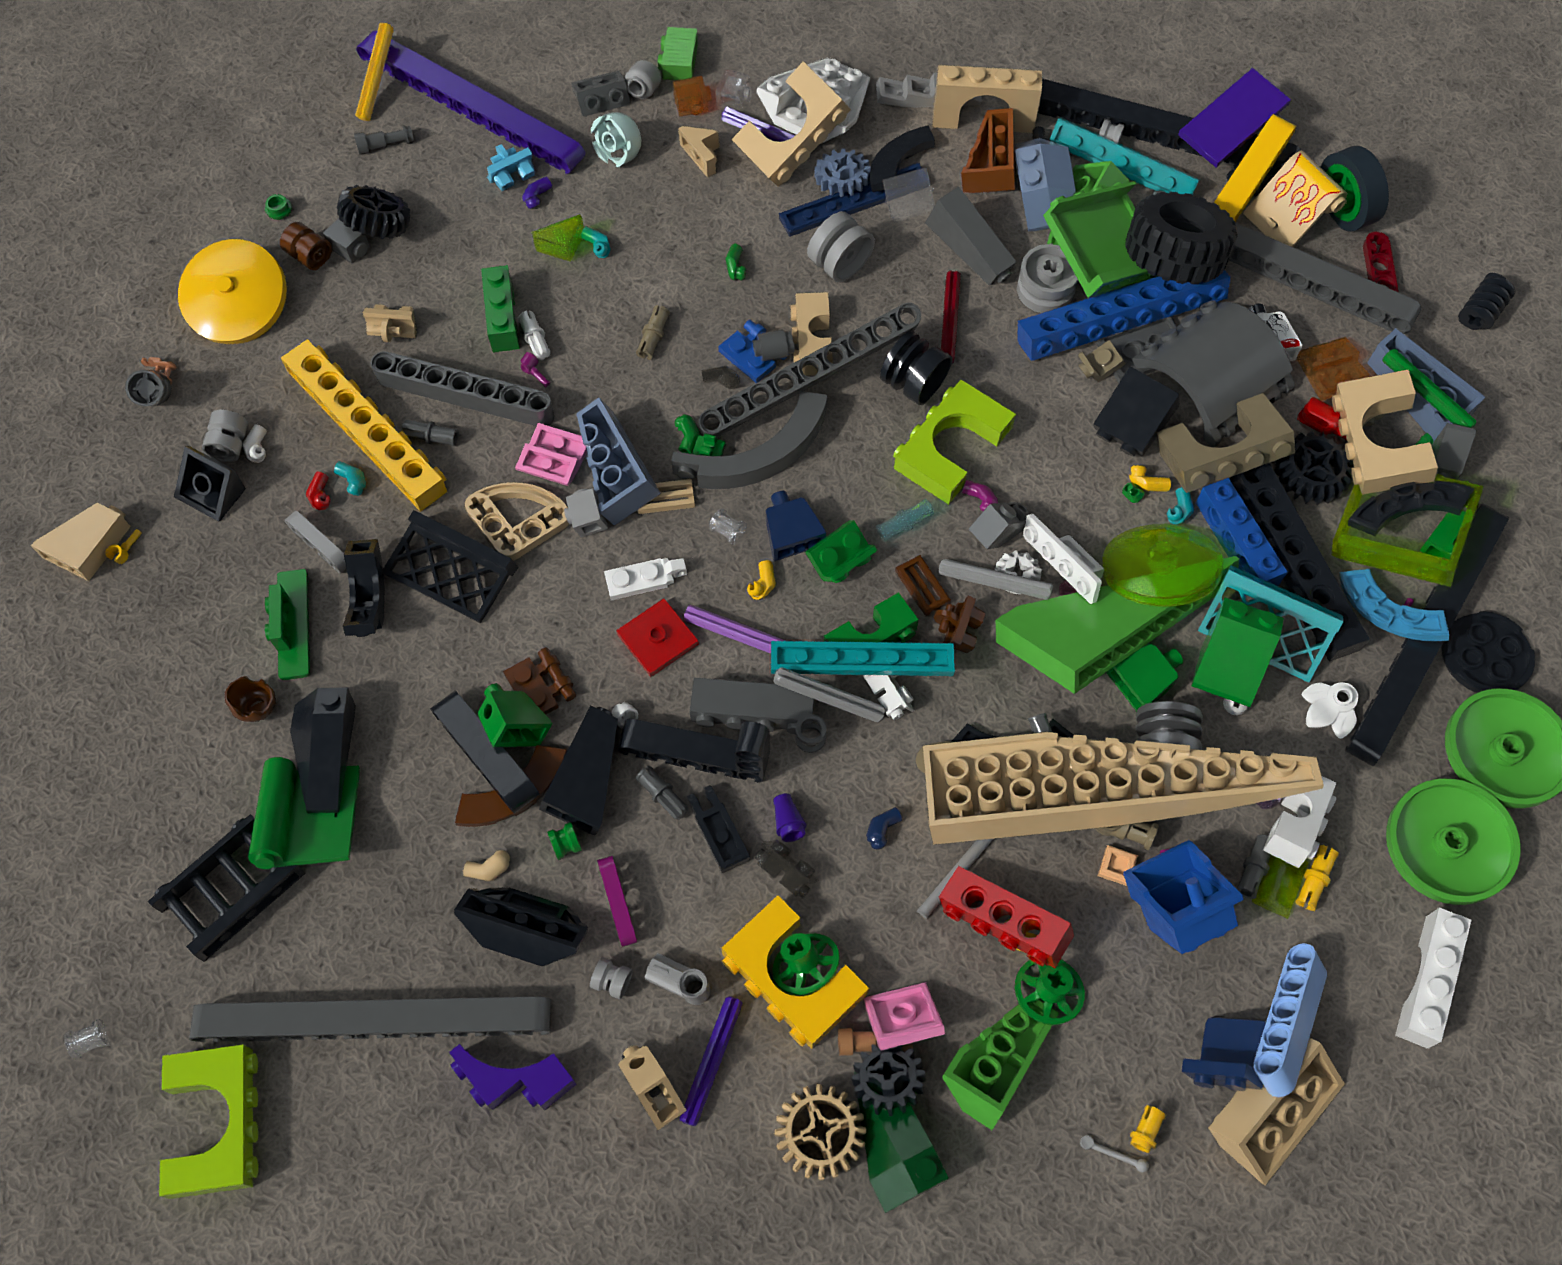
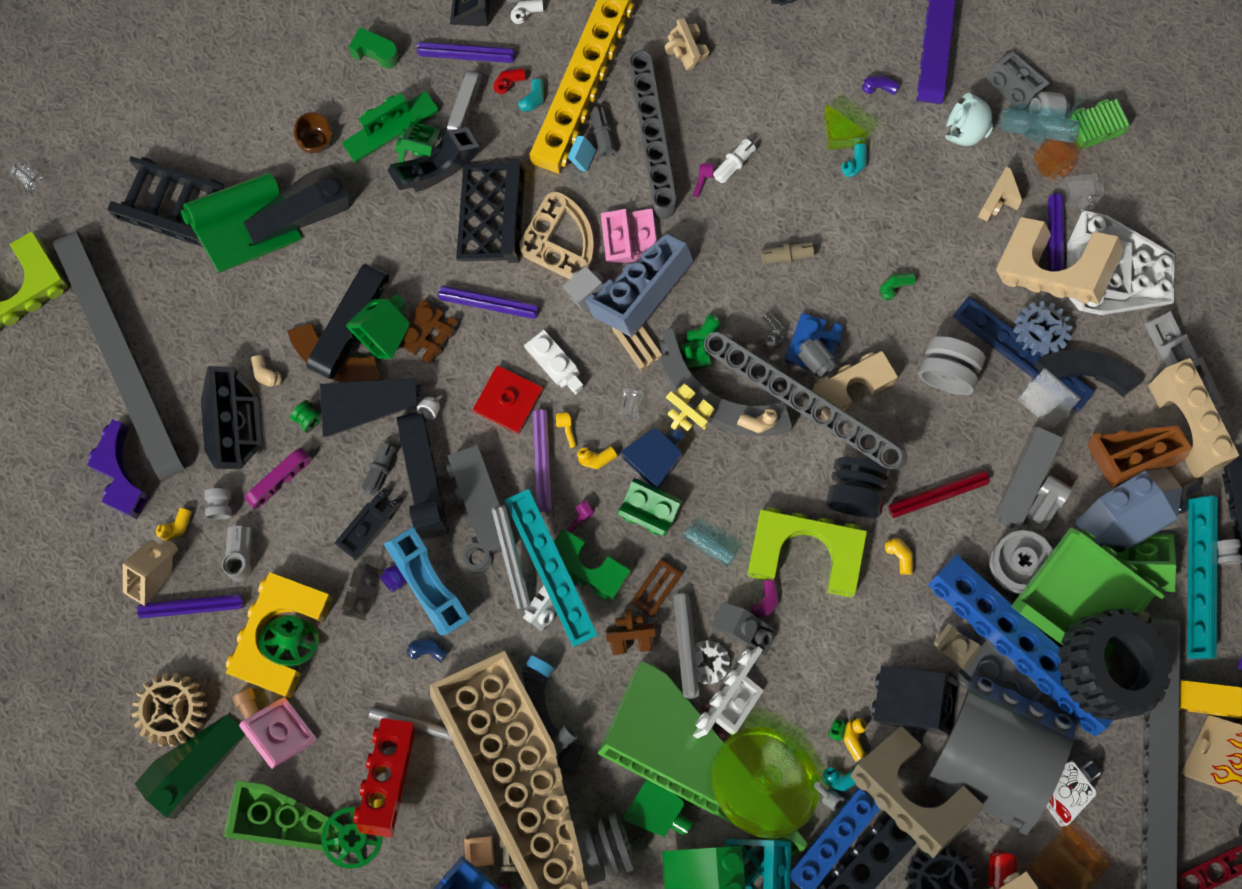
camera: 70 degrees right, 10 degrees up
(196, 599) = (374, 47): none -> green leg
(260, 519) = (465, 52): none -> dark purple axle
(325, 597) = (417, 139): none -> green bracket
(441, 458) = (581, 153): none -> medium azure tile
(499, 308) = (729, 127): green arch -> none
(508, 162) = (901, 56): medium azure hips -> none
(542, 612) = (488, 302): none -> dark purple axle
(613, 1040) = (176, 528): none -> yellow arm
(657, 87) = (1039, 125): none -> clear light blue piece
(710, 592) = (564, 420): none -> yellow hand
(768, 474) = (699, 415): none -> light yellow hips
(812, 416) = (760, 423): none -> tan arm
(813, 614) = (585, 511): none -> magenta hand
(848, 787) = (437, 601): none -> dark azure arch
(904, 1082) = (215, 747): black gear -> none
(953, 722) = (540, 666): none -> dark azure tile
(995, 367) = (903, 552): none -> yellow arm
(1002, 229) = (1049, 499): none -> light grey piece
(1197, 523) = (830, 797): none -> light grey hand

